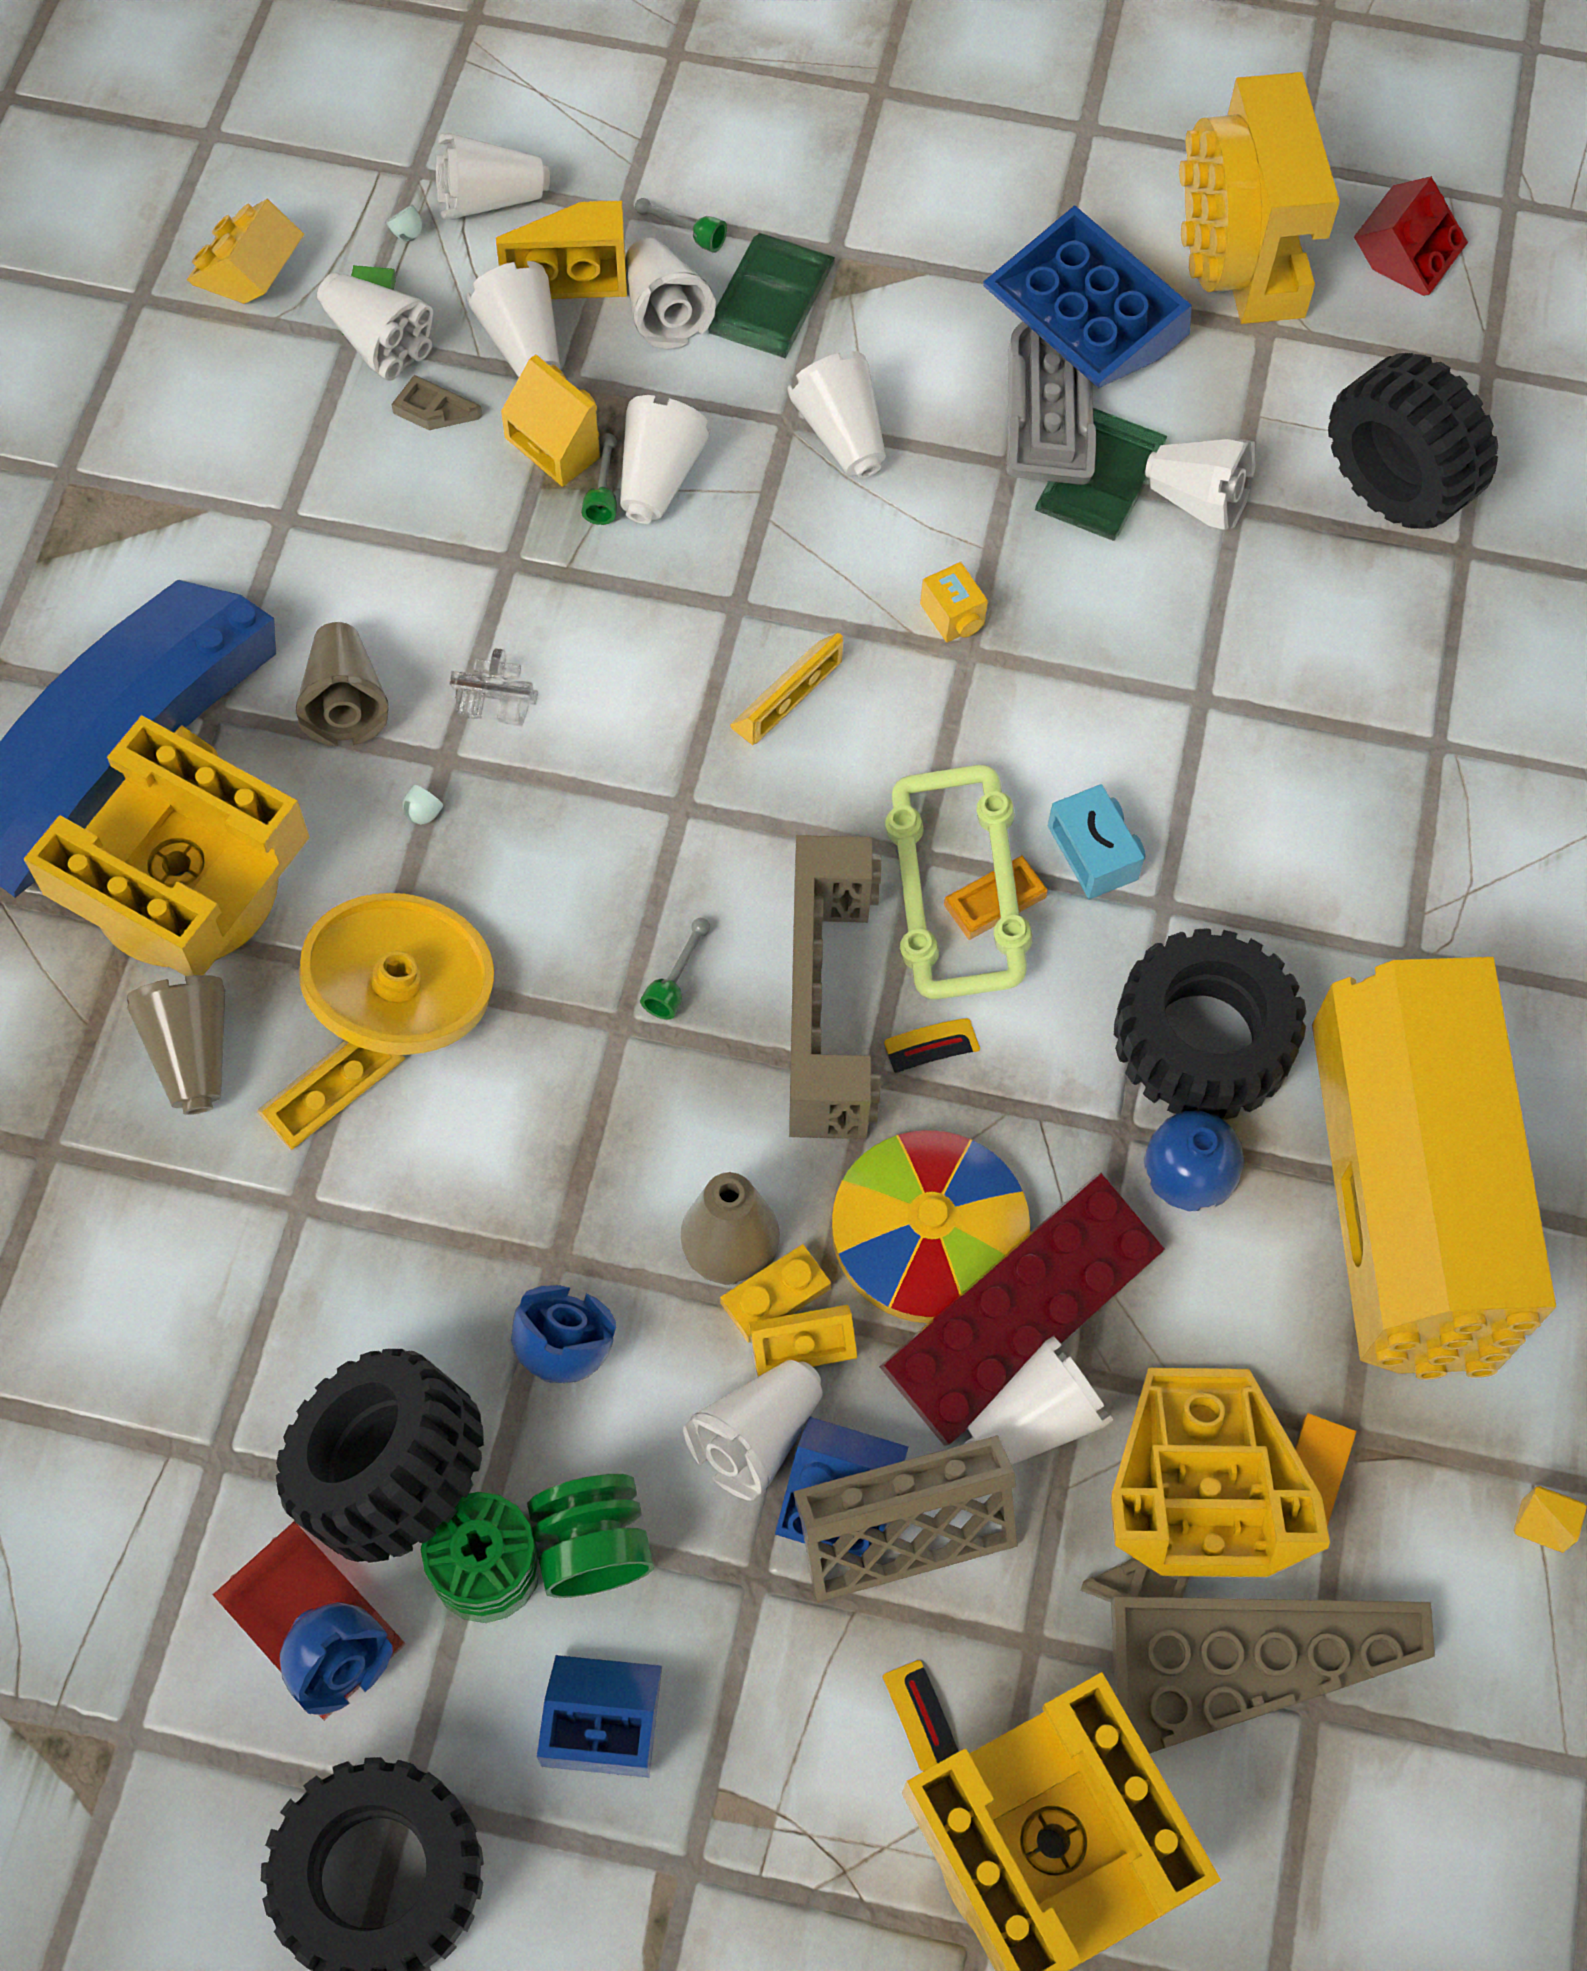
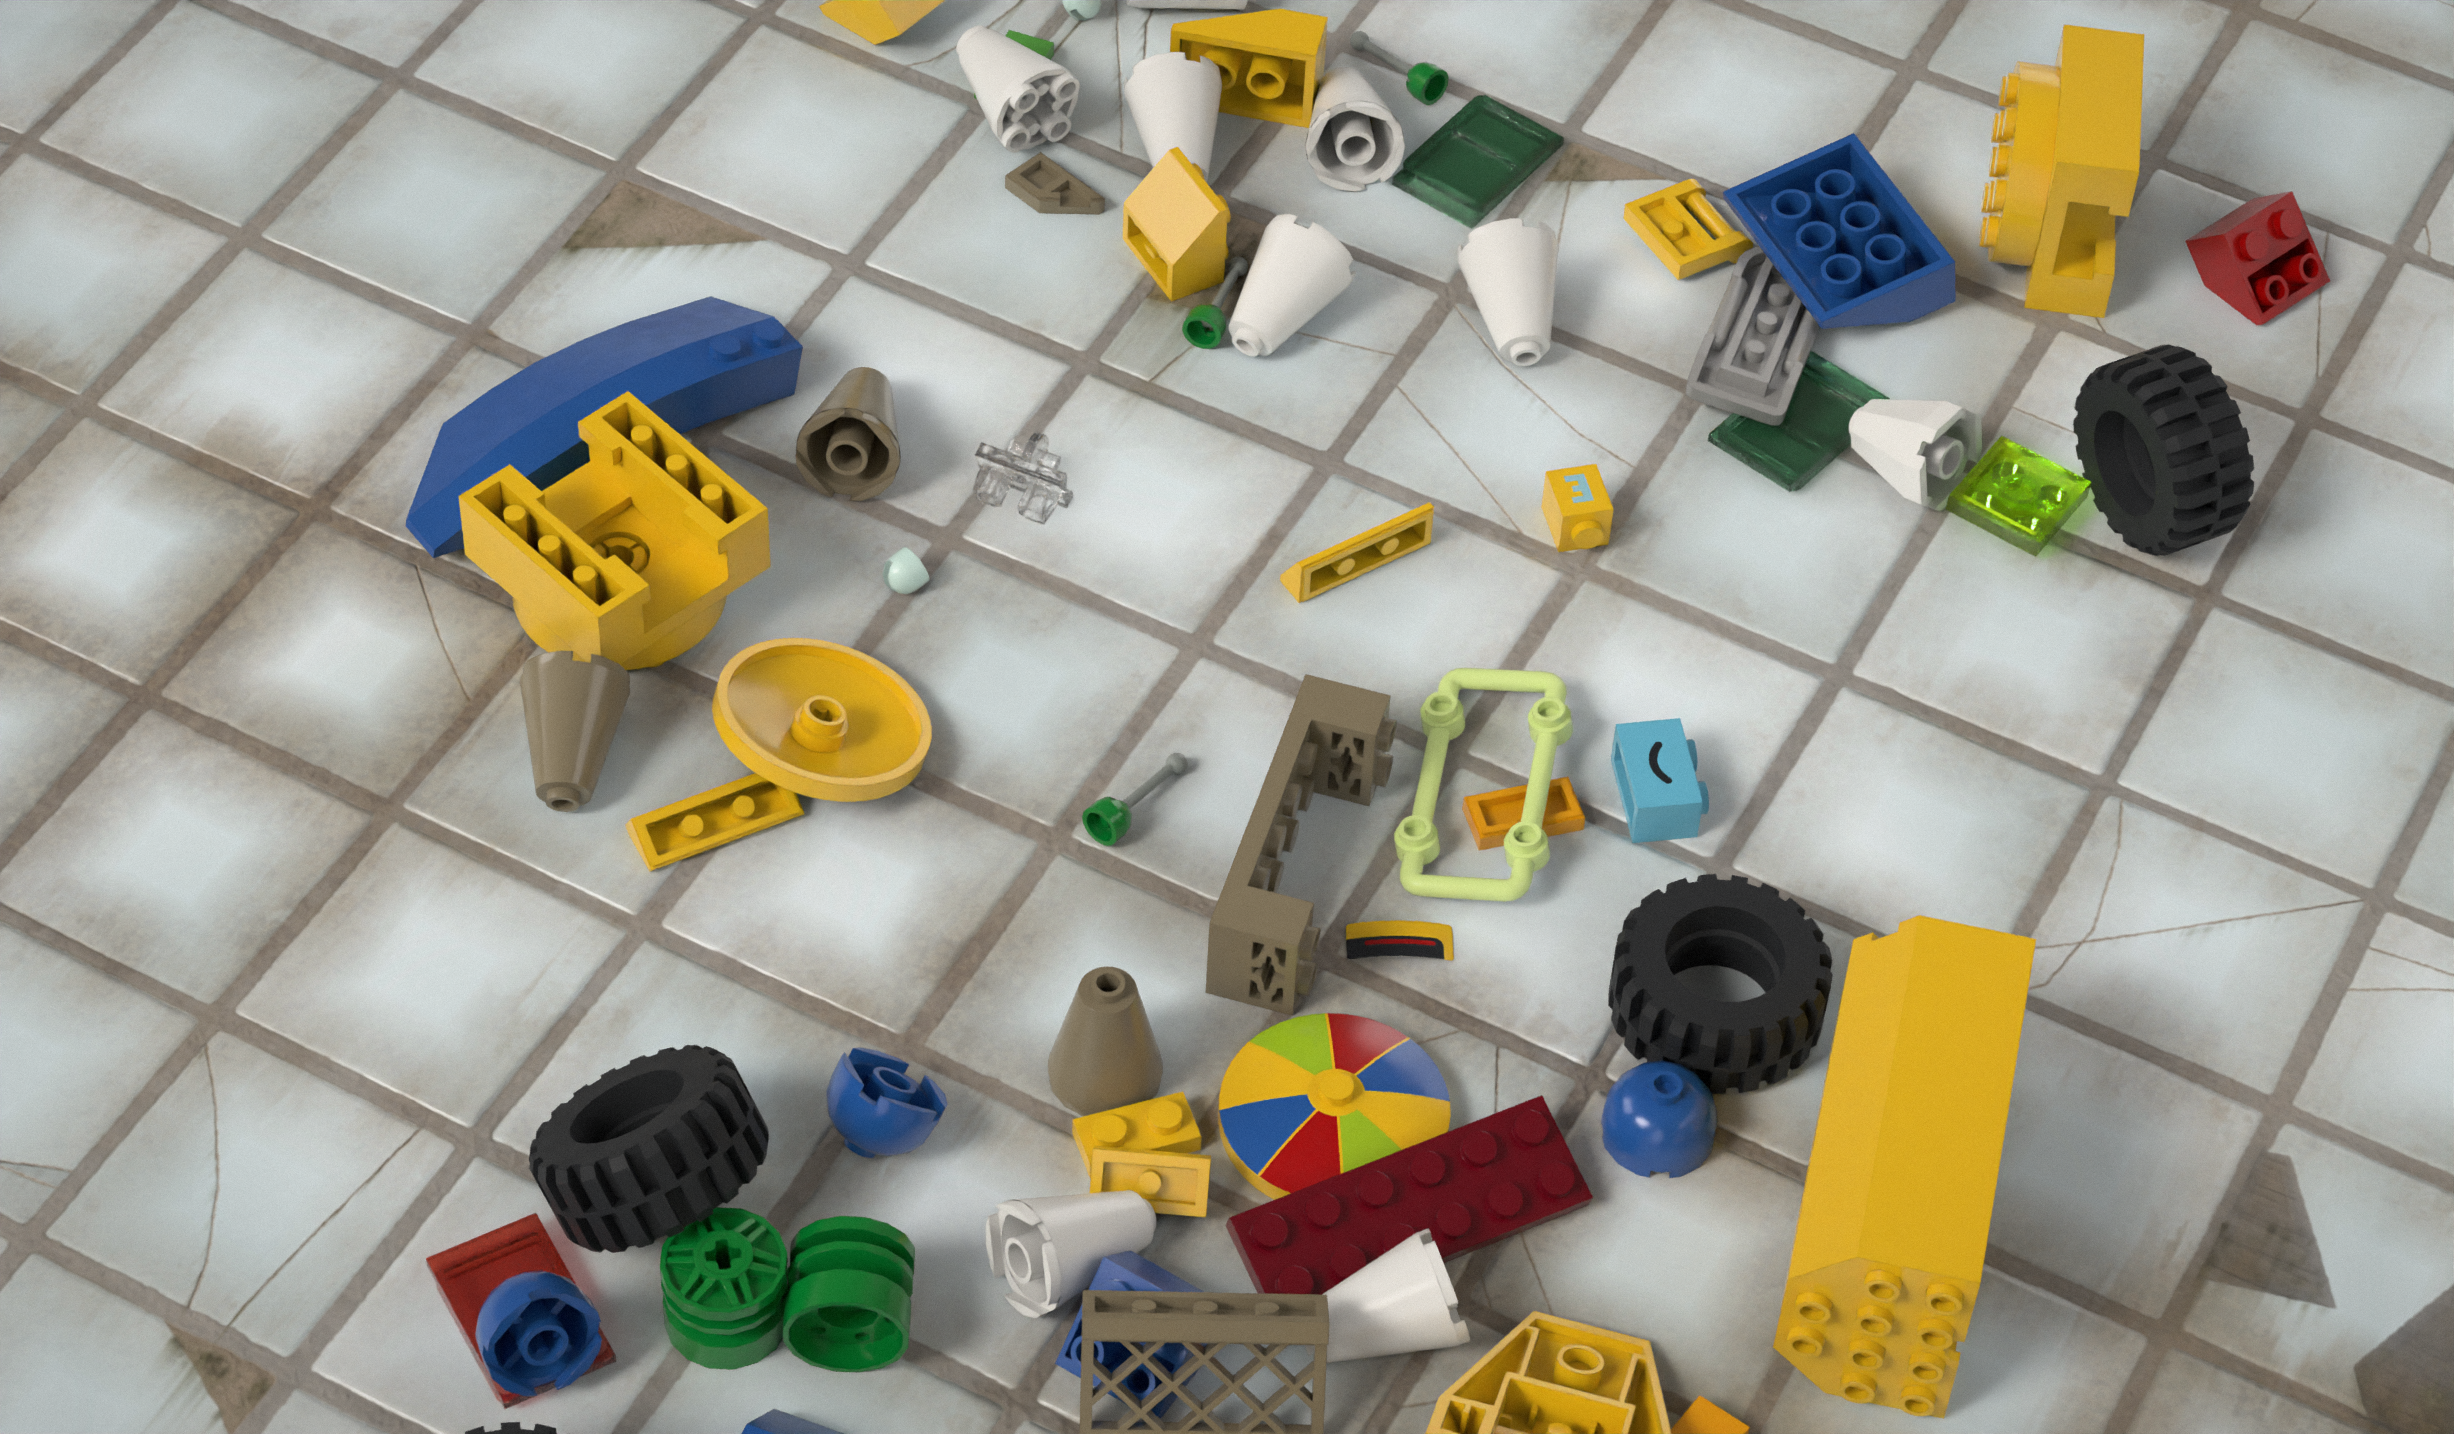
camera: 15 degrees right, 15 degrees down
(954, 327) = (1677, 237): none -> yellow plate
(1295, 500) = (2018, 496): none -> clear neon green plate

